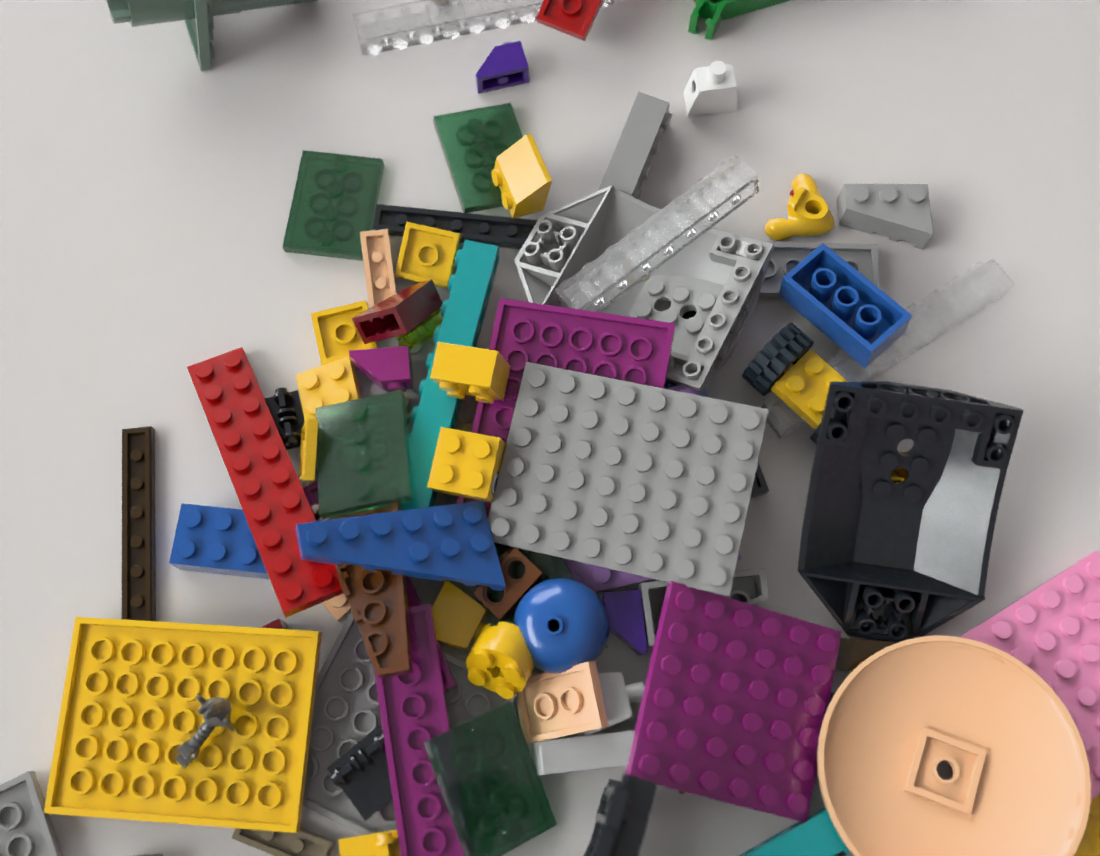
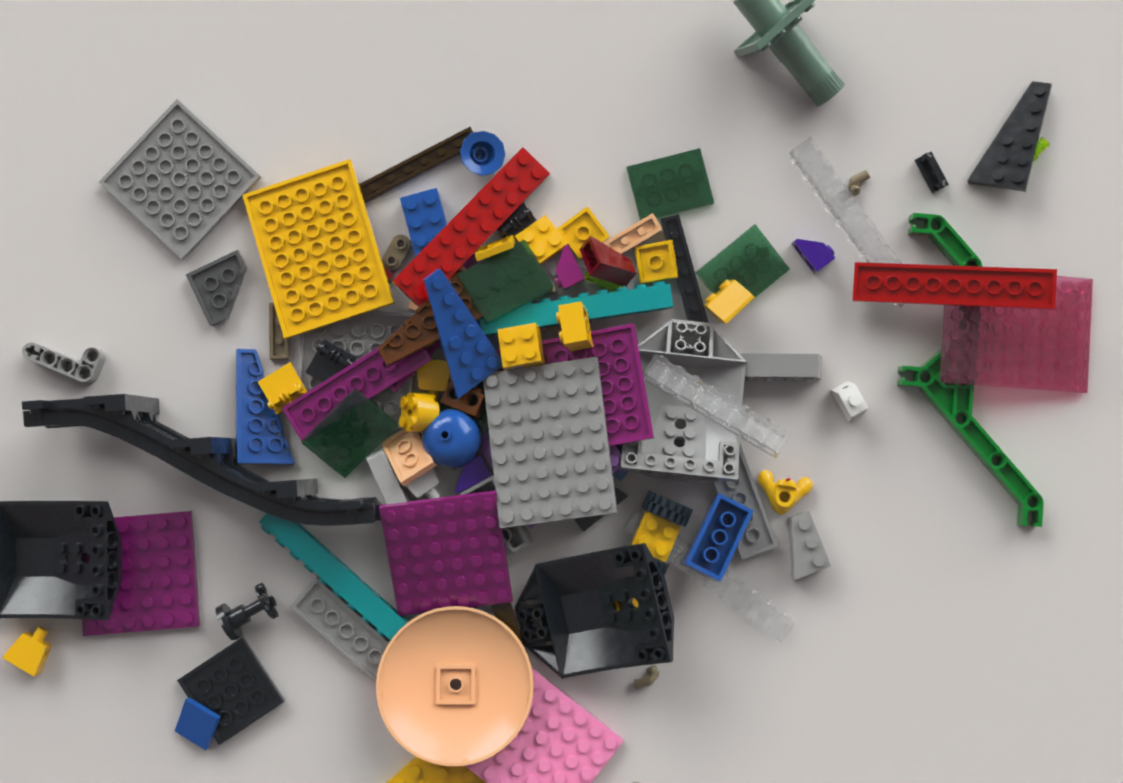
camera: 70 degrees right, 15 degrees up
(166, 421) = (489, 149): none -> blue hat
(215, 713) = (326, 266): dark grey piece -> none
(249, 603) = (396, 252): none -> dark tan plate
(1016, 486) = (646, 681): none -> dark tan arm

